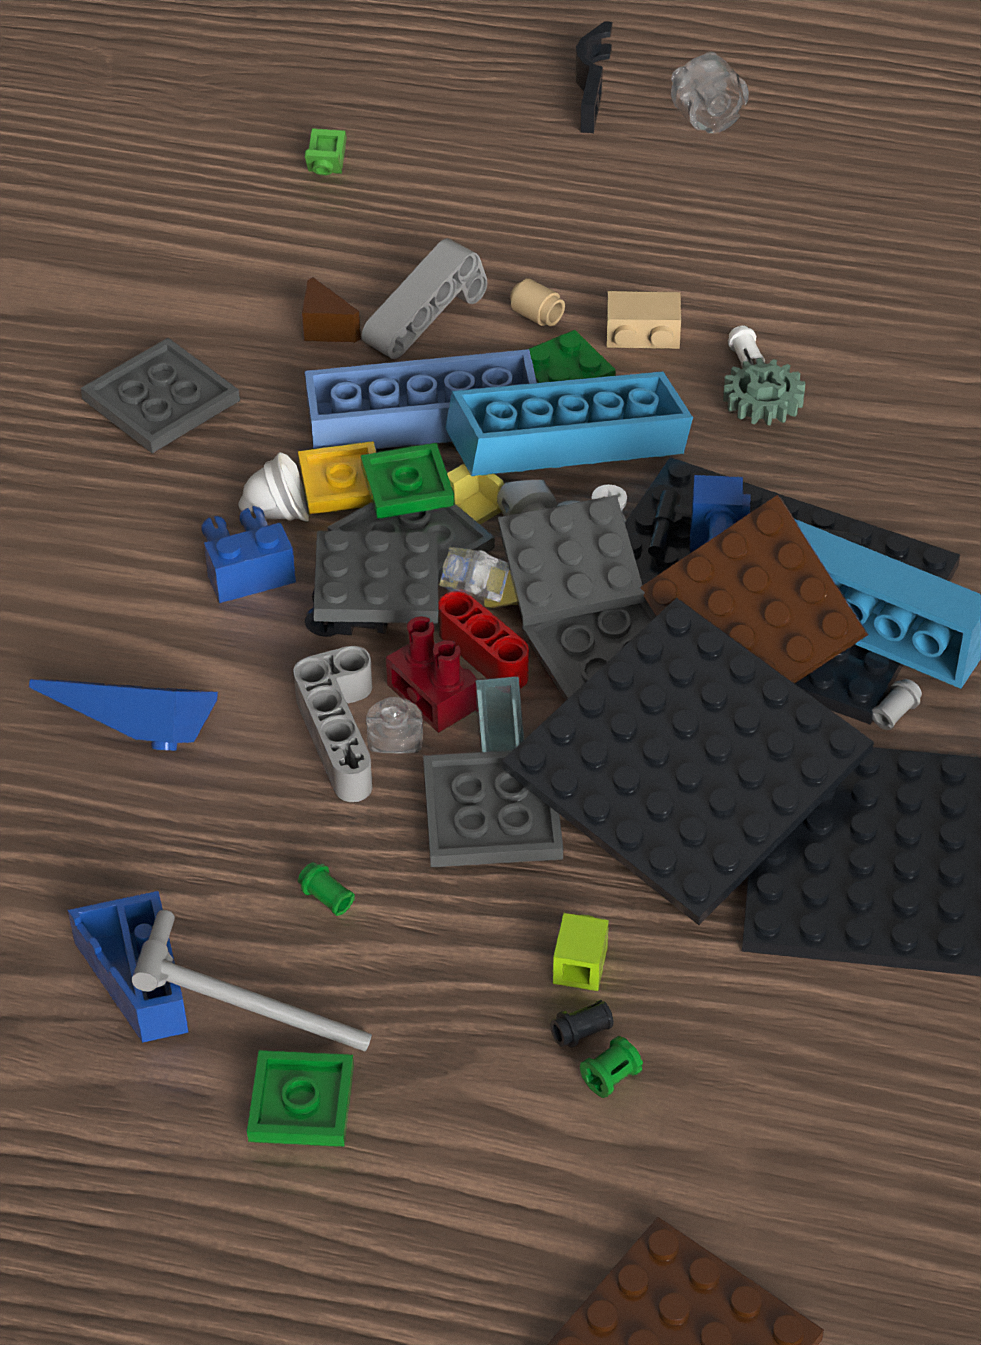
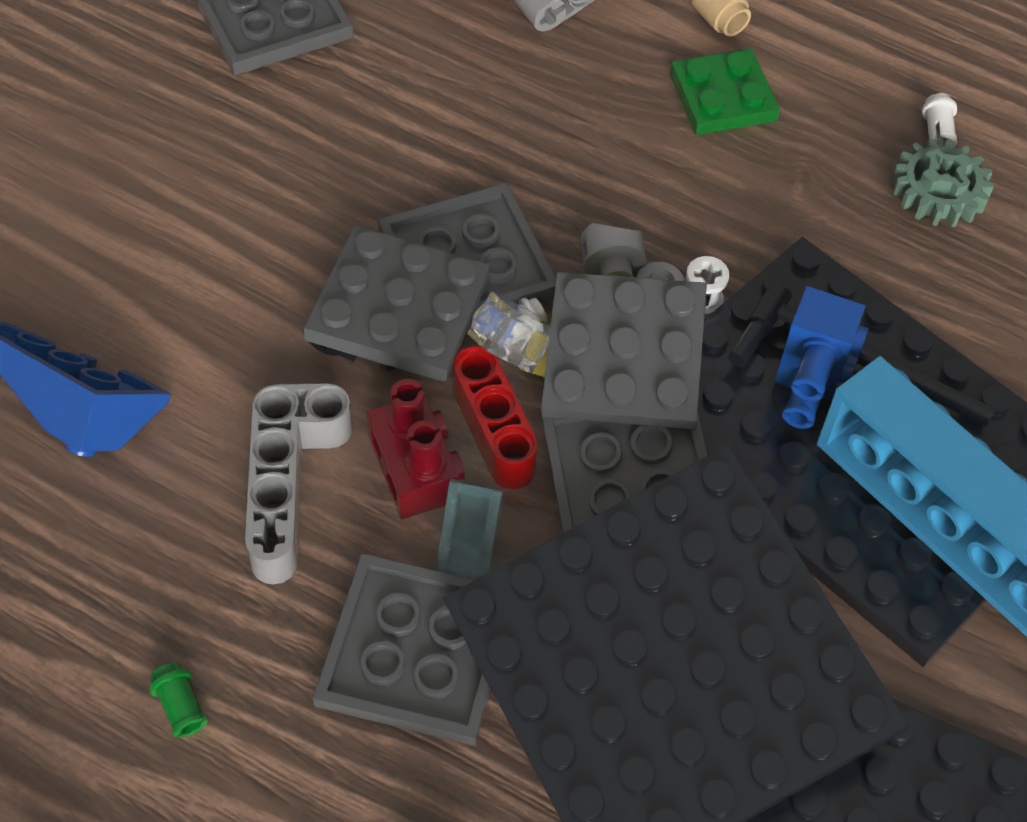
camera: 15 degrees right, 10 degrees up
(248, 560) = (273, 237): blue brick -> none
(276, 491) = (341, 160): white piece -> none
(335, 477) = (420, 160): yellow plate -> none
(394, 726) = (347, 502): clear piece -> none
(402, 400) = (542, 93): medium blue brick -> none
(407, 480) = (484, 188): green plate -> none
(475, 493) = (558, 219): light yellow panel -> none
(567, 423) = (693, 166): dark azure brick -> none
(643, 319) = (833, 56): tan brick -> none
(764, 592) = (839, 473): reddish brown plate -> none
(903, 696) = (974, 647): light grey pin -> none

